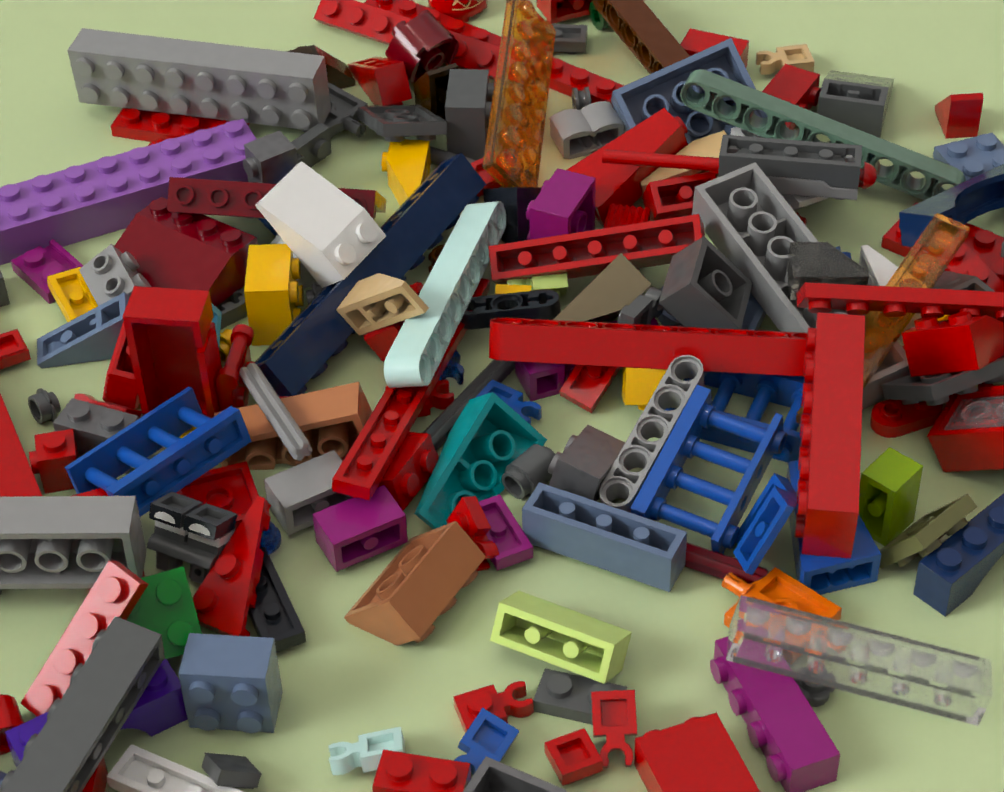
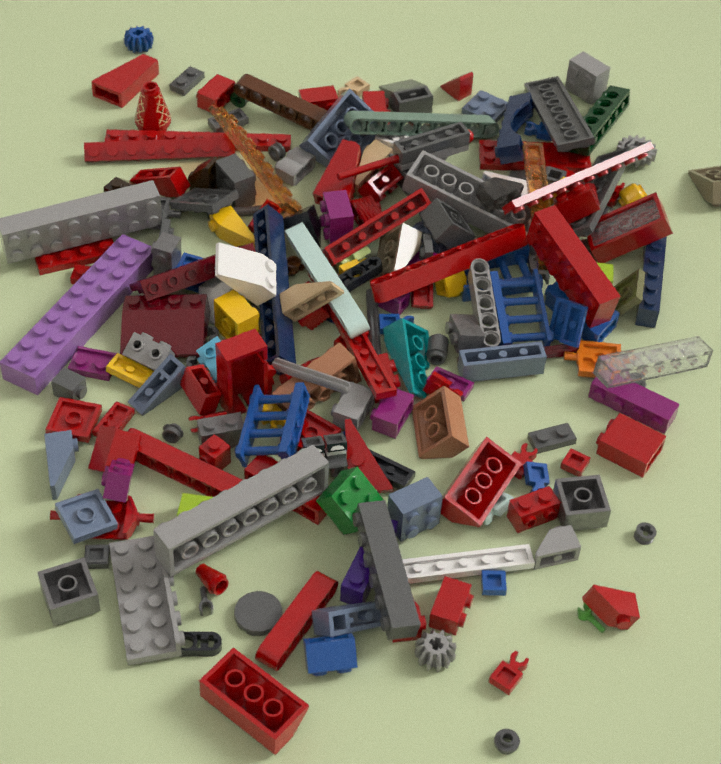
camera: 40 degrees left, 5 degrees up
(111, 596) = (338, 527): plate -> none
(231, 770) = (446, 546): dark grey tile -> none
(371, 699) = (479, 484): none -> red slope
(422, 45) = (175, 153): dark red brick -> none
(561, 636) = (526, 414): yellowish green brick -> none
(614, 718) = (580, 437): red plate -> none

